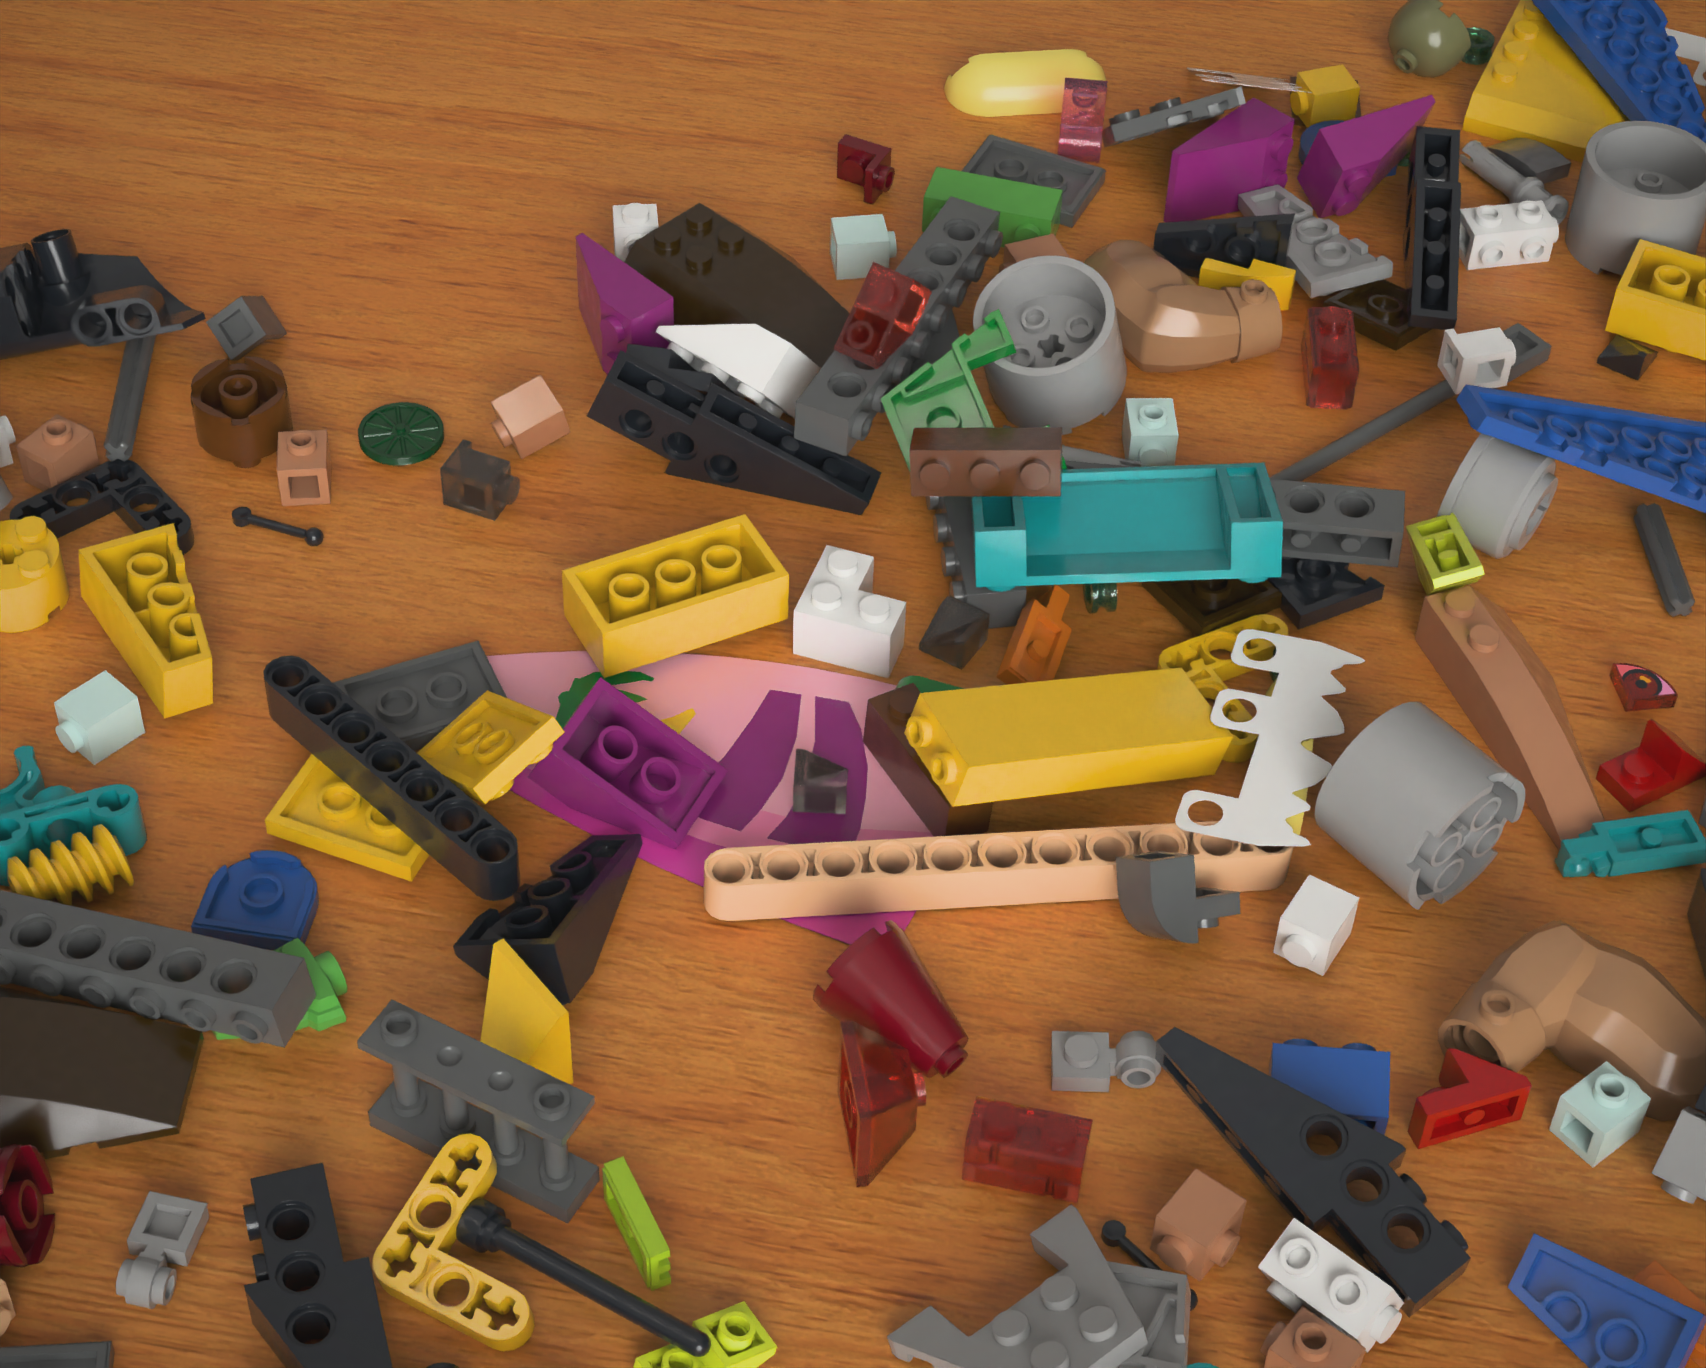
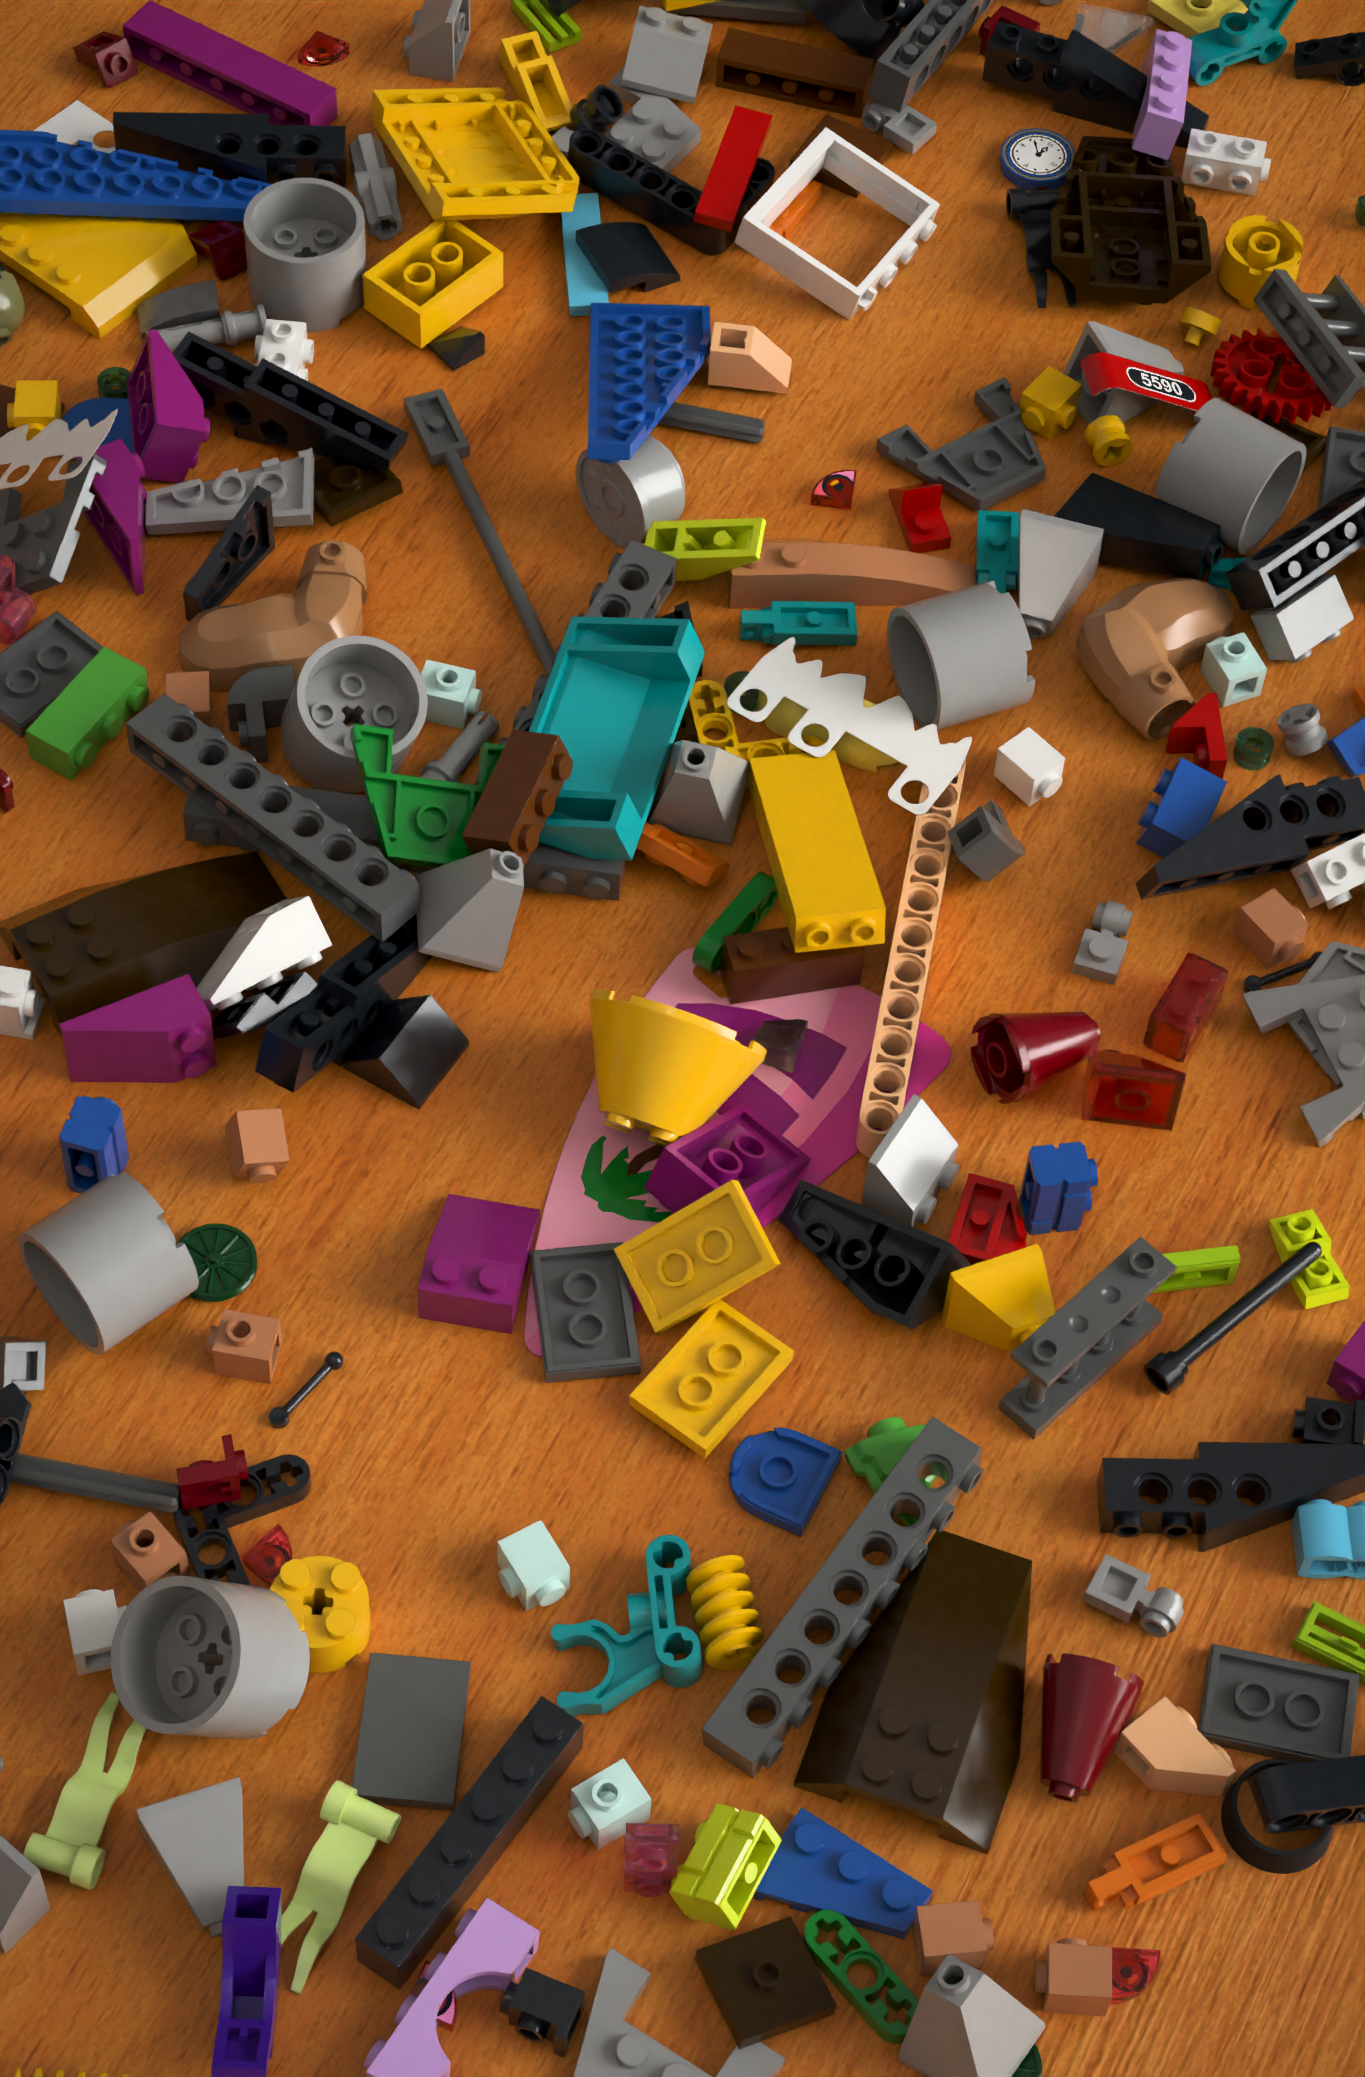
camera: 75 degrees left, 10 degrees up
(78, 536) = (269, 1555): none -> clear red tile
(141, 469) = (211, 1481): none -> dark red bracket
(151, 616) = (429, 1498): yellow wedge -> none
(240, 409) = (153, 1381): reddish brown brick -> none
(341, 331) = (108, 1262): none -> light grey brick
(393, 778) = (693, 1354): black beam -> none
(436, 1267) = (1190, 1414): yellow beam -> none
(452, 599) = (477, 1263): none -> magenta slope
(478, 482) = (319, 1208): clear smoke brick -> none
(482, 310) = (93, 1142): none -> blue brick
(634, 1019) = (987, 1220): none -> red wing
(675, 595) = (542, 1084): yellow brick -> none
(677, 910) = (911, 1166): none -> light grey slope
(685, 501) = (408, 1049): none -> black slope
(690, 1049) = (1057, 1187): none -> blue brick
(718, 658) = (663, 1066): none -> yellow cone
(843, 619) = (574, 967): white brick -> none
(859, 243) = (97, 828): light aqua brick -> none
(862, 498) = (470, 908): none -> light grey slope
(882, 316) = (311, 814): clear red slope -> none
(955, 632) = (635, 903): clear smoke slope -> none
(1119, 621) = (700, 792): none -> light grey slope
(1219, 274) = (280, 556): yellow slope -> none
(1329, 358) = (399, 538): clear red brick -> none
(1415, 678) = (804, 620): none -> teal hinge
(1476, 358) = (459, 441): white brick -> none
(1490, 1180) = (1259, 739): none -> clear green bush
(1540, 1203) = (1302, 729): none -> light grey wheel
(1626, 890) = (1053, 568): none -> light grey slope

